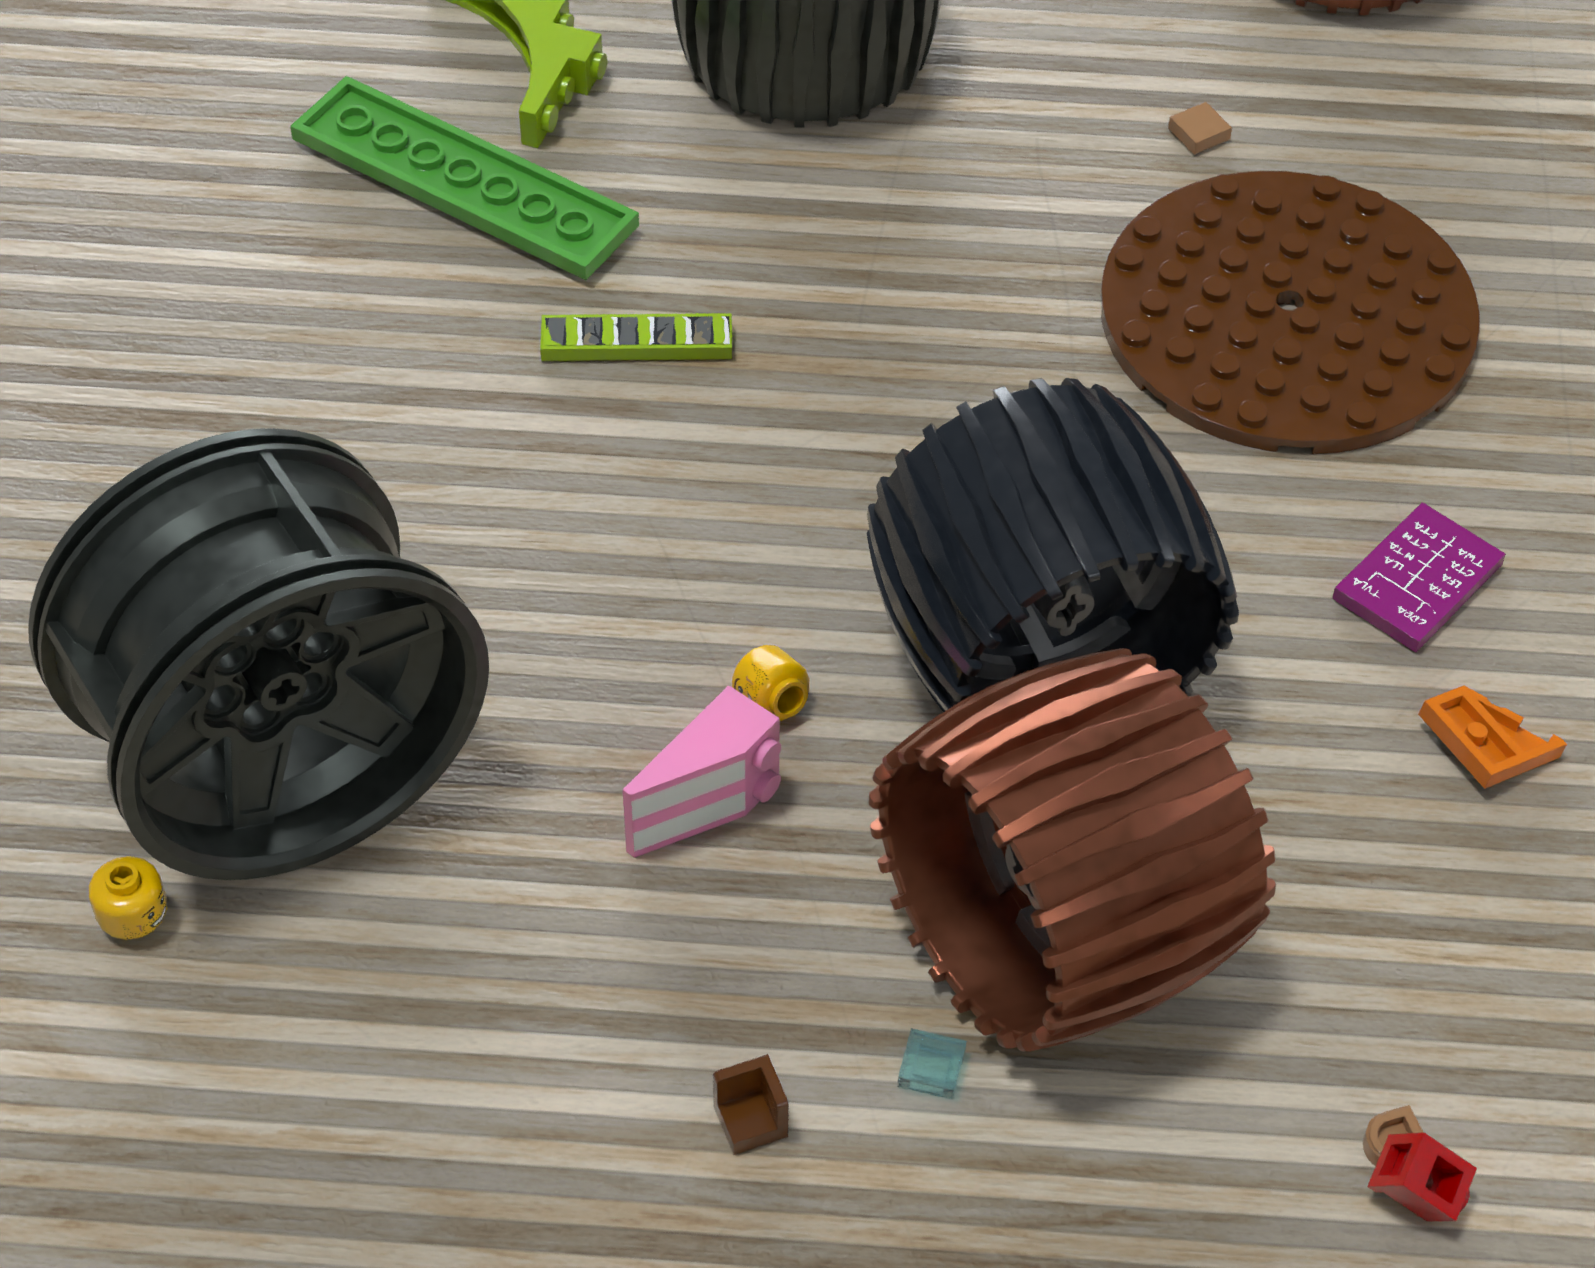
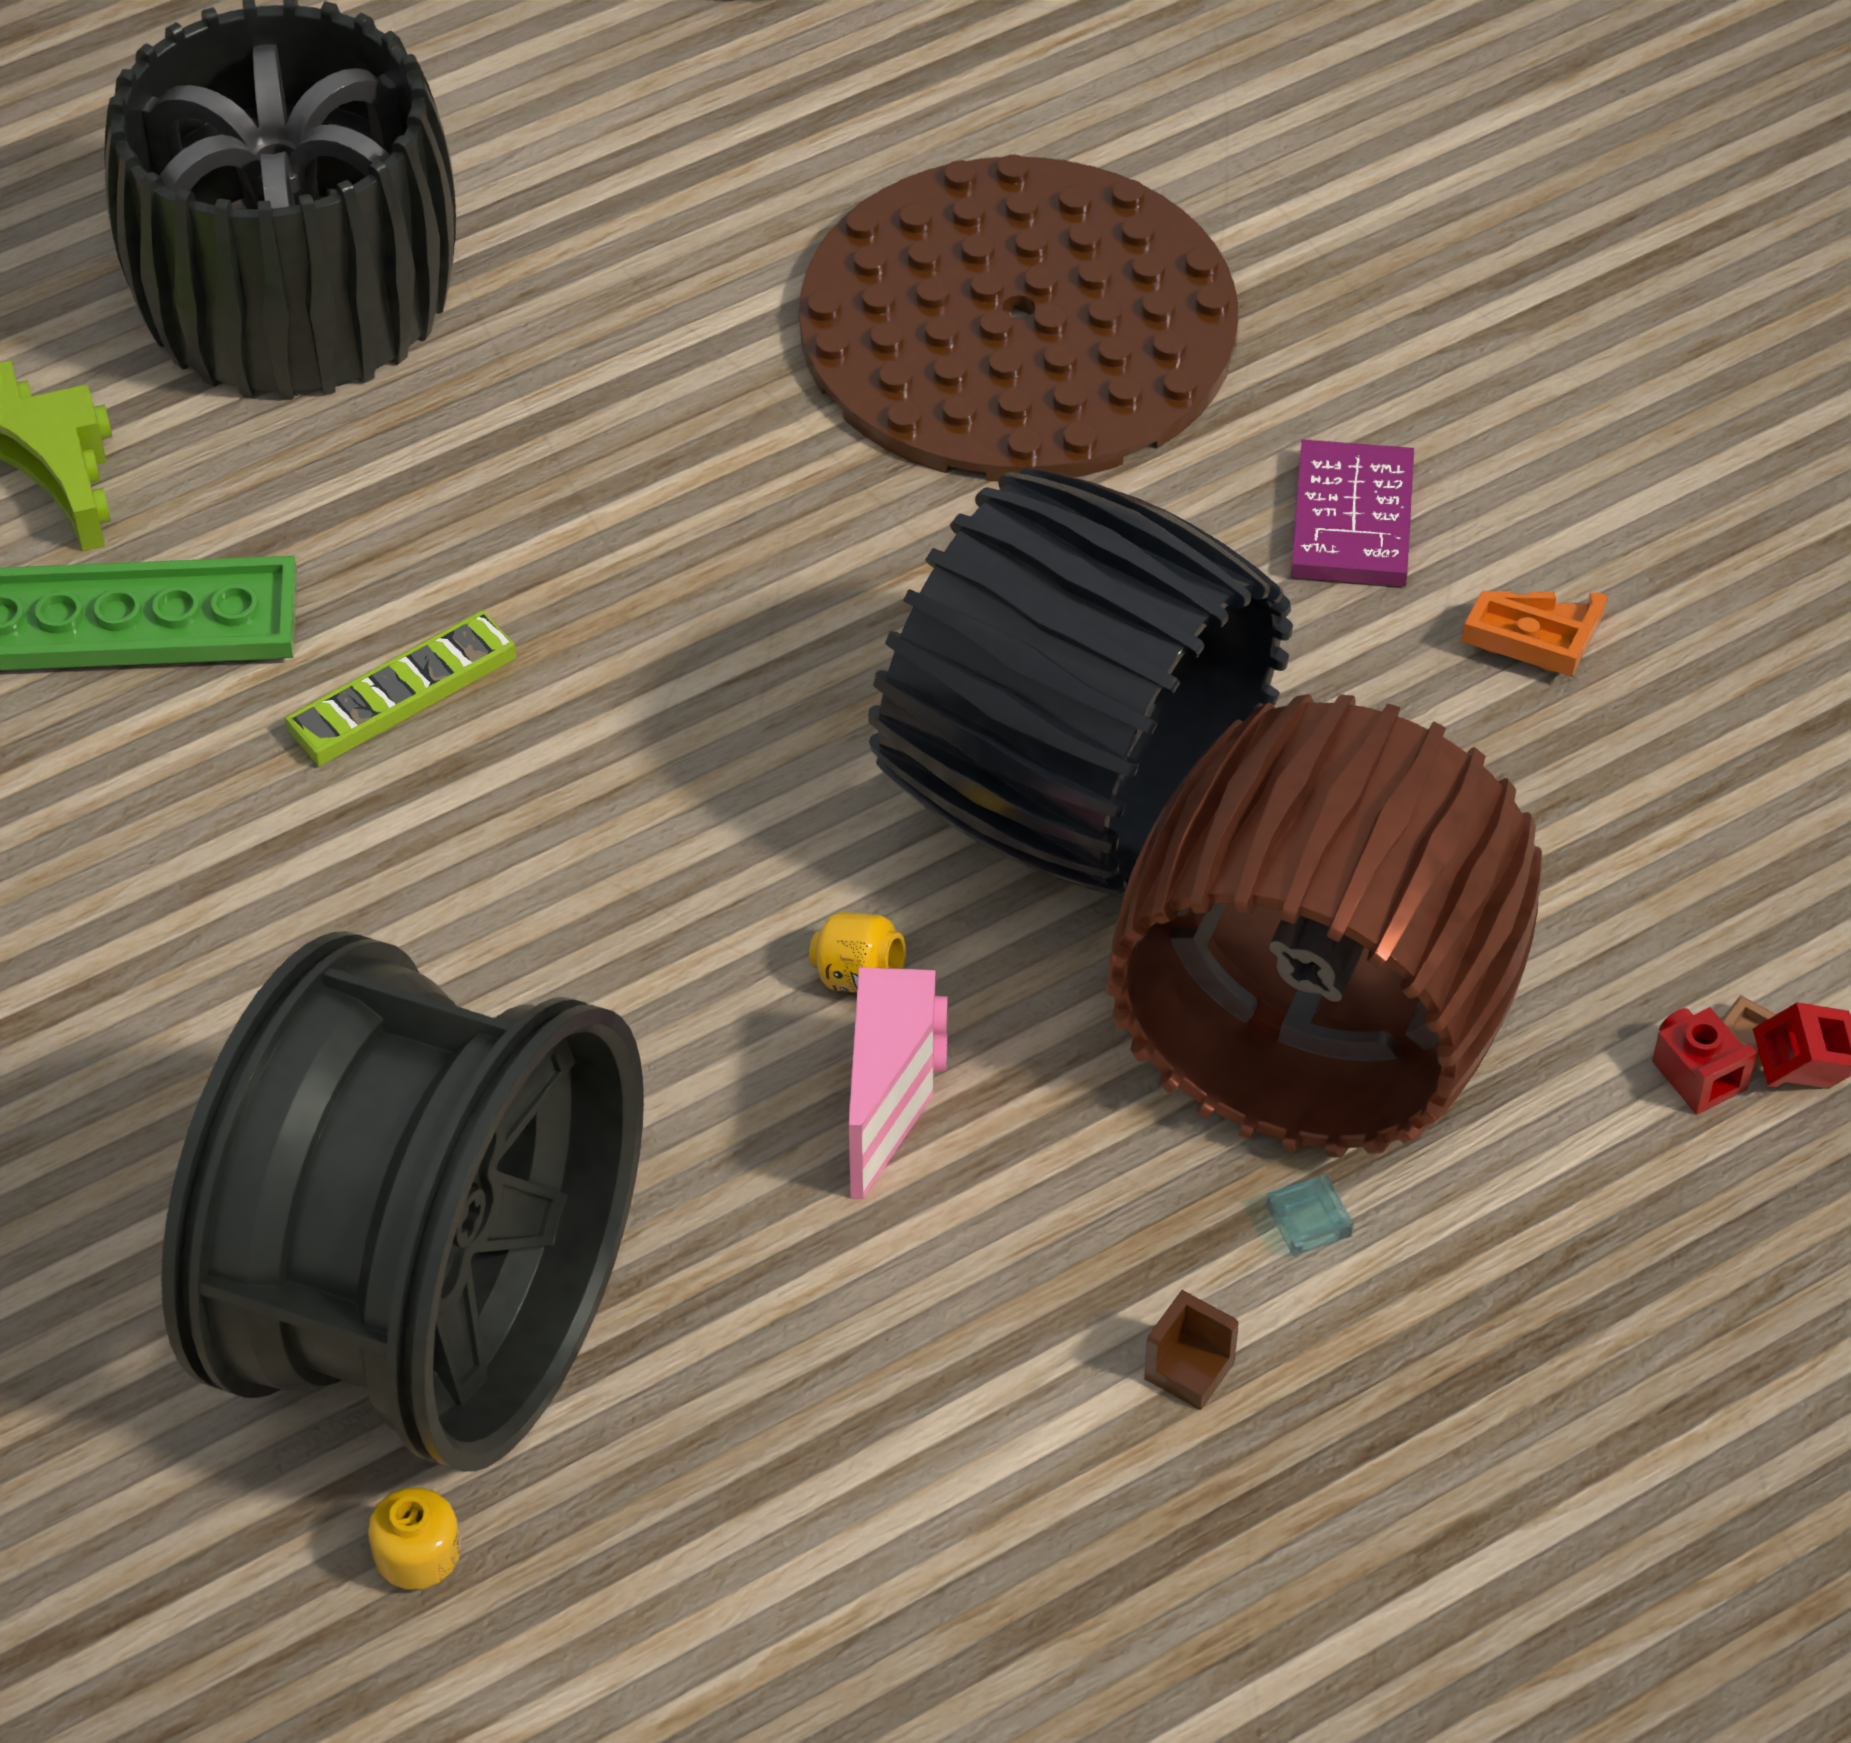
camera: 35 degrees left, 0 degrees up
(1200, 128) = (780, 175): medium nougat tile -> none
(1334, 1134) = (1702, 1058): none -> red brick

